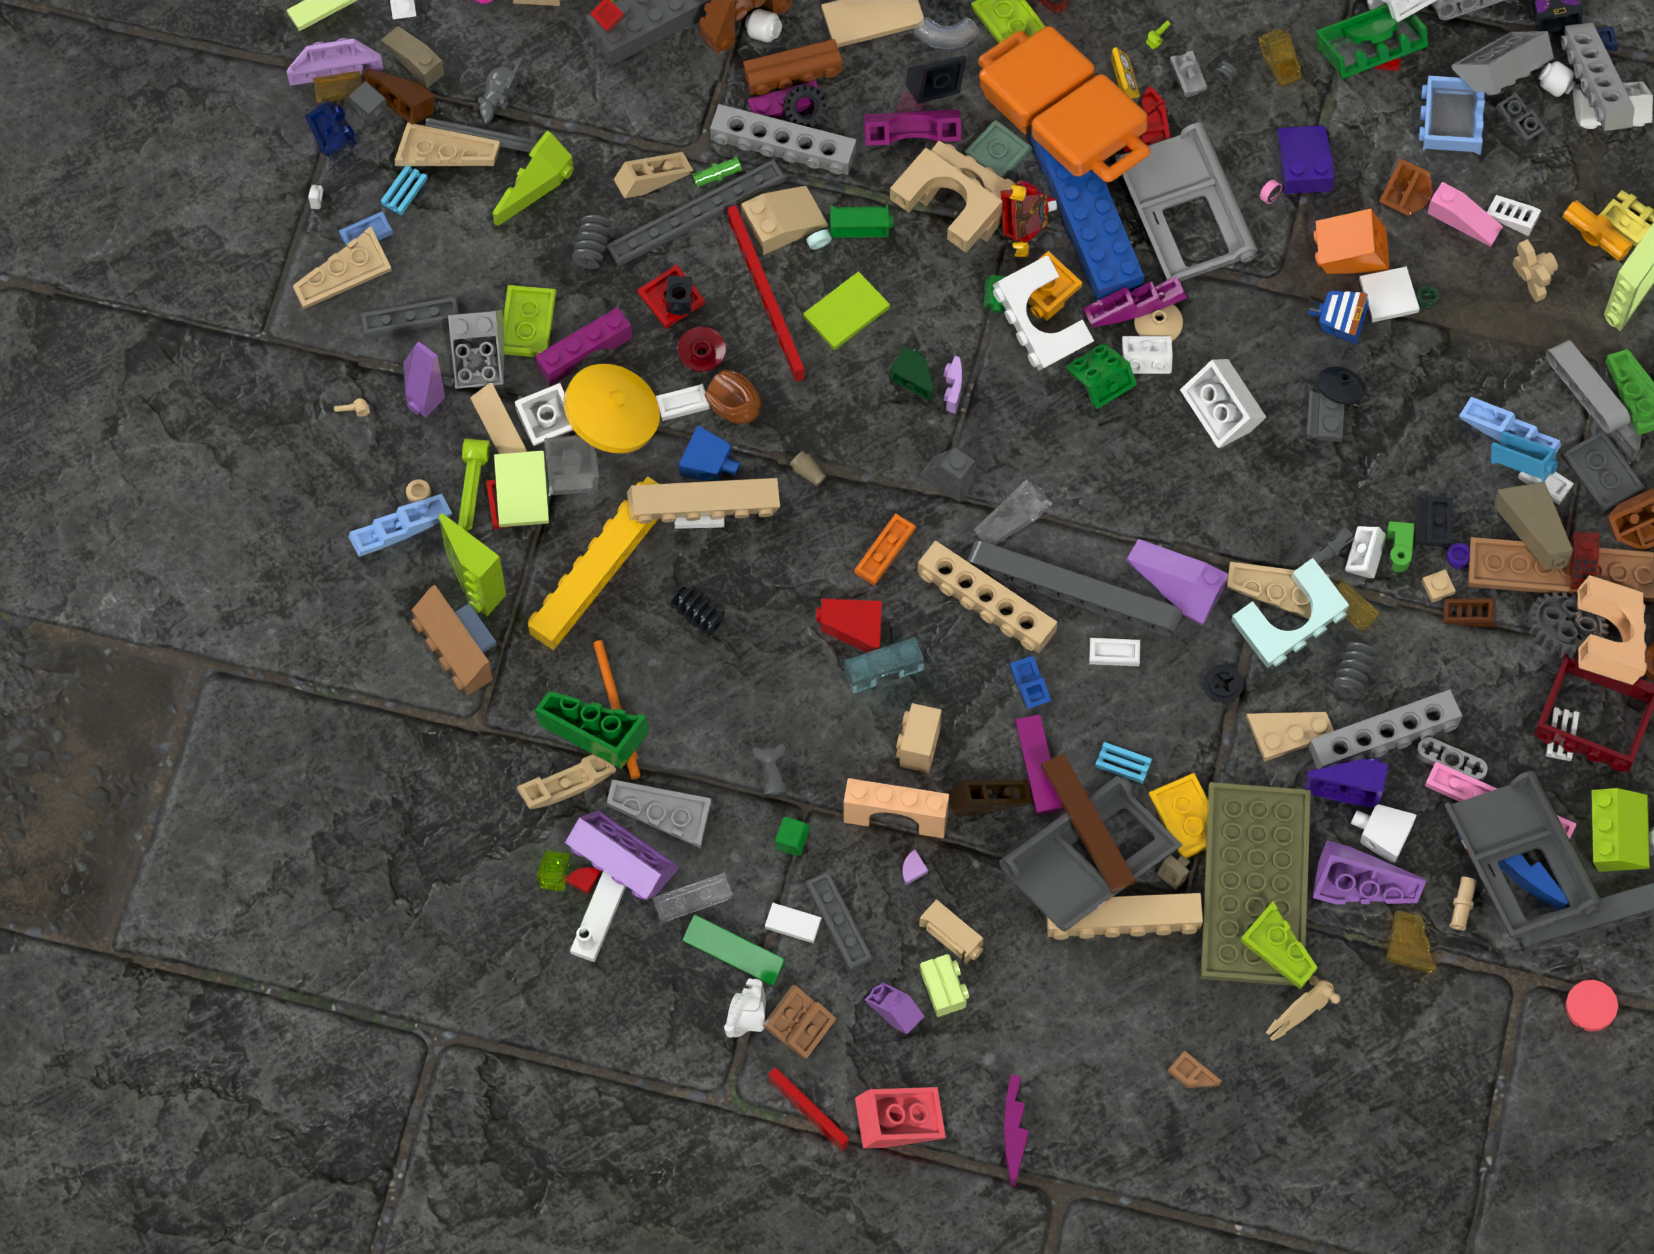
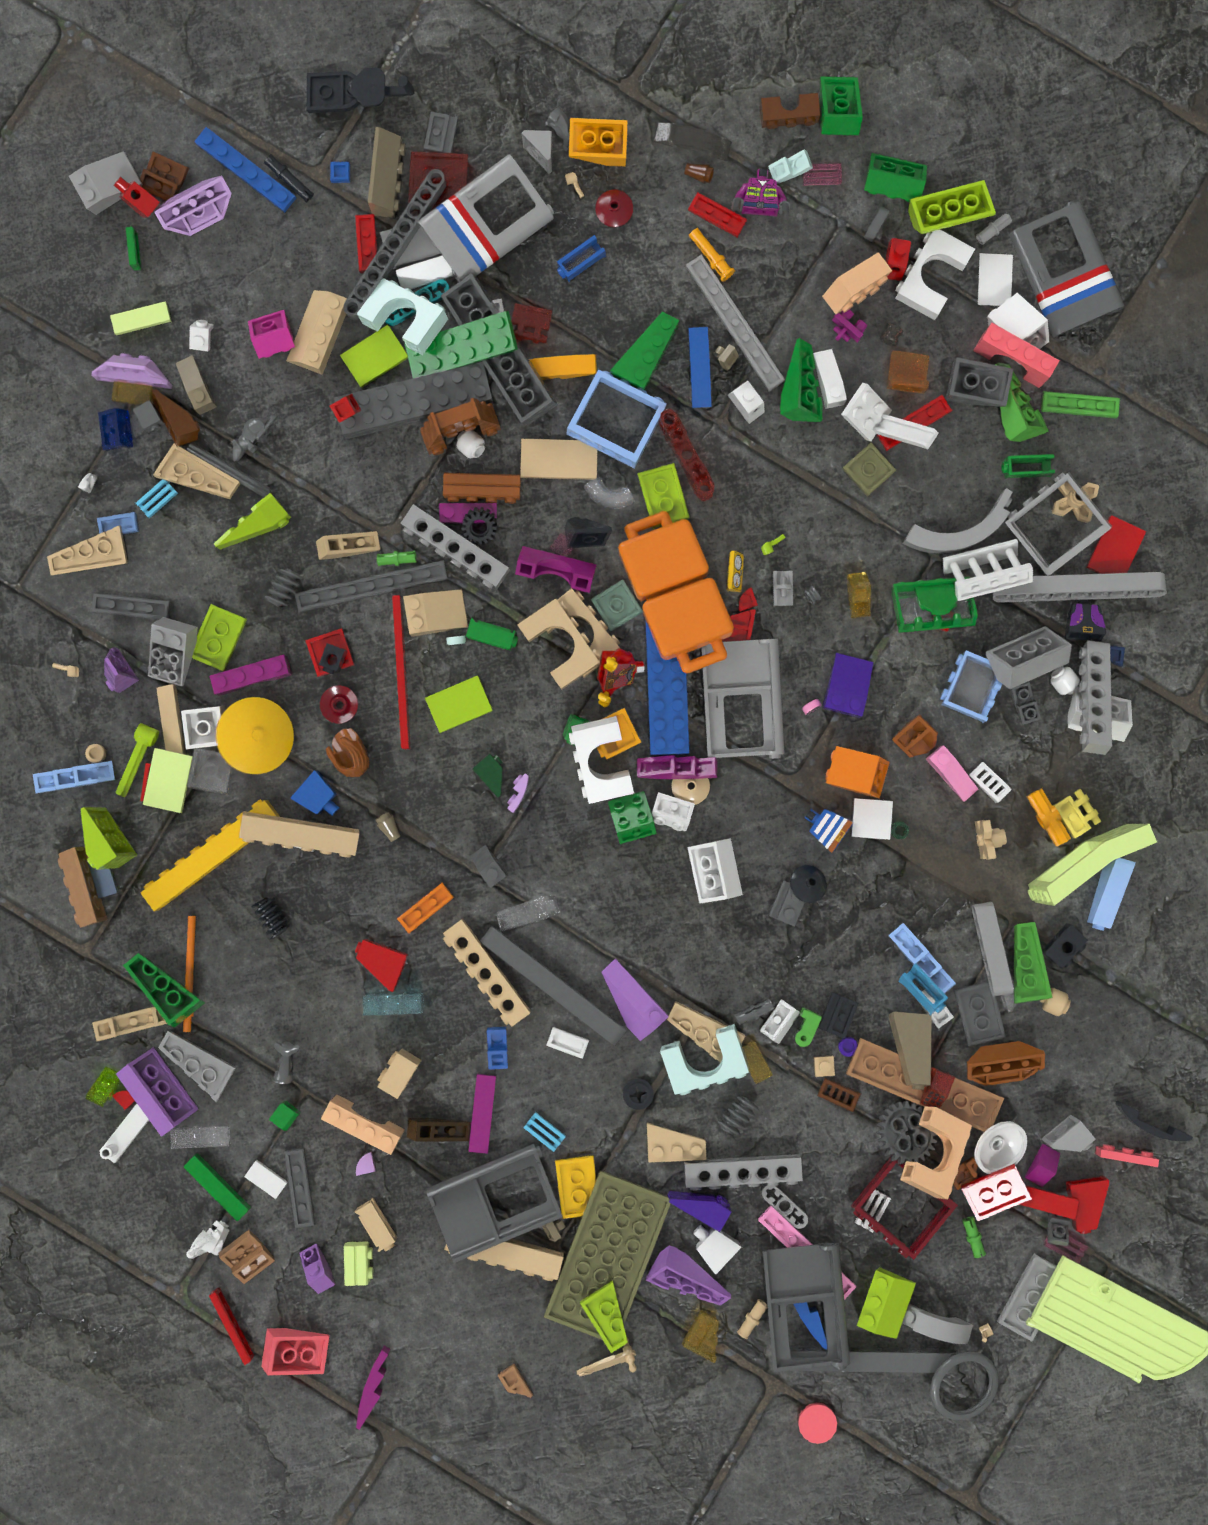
camera: 20 degrees right, 20 degrees up
(682, 402) = (312, 741): white tile -> none
(1088, 823) = (497, 1183): reddish brown tile -> none

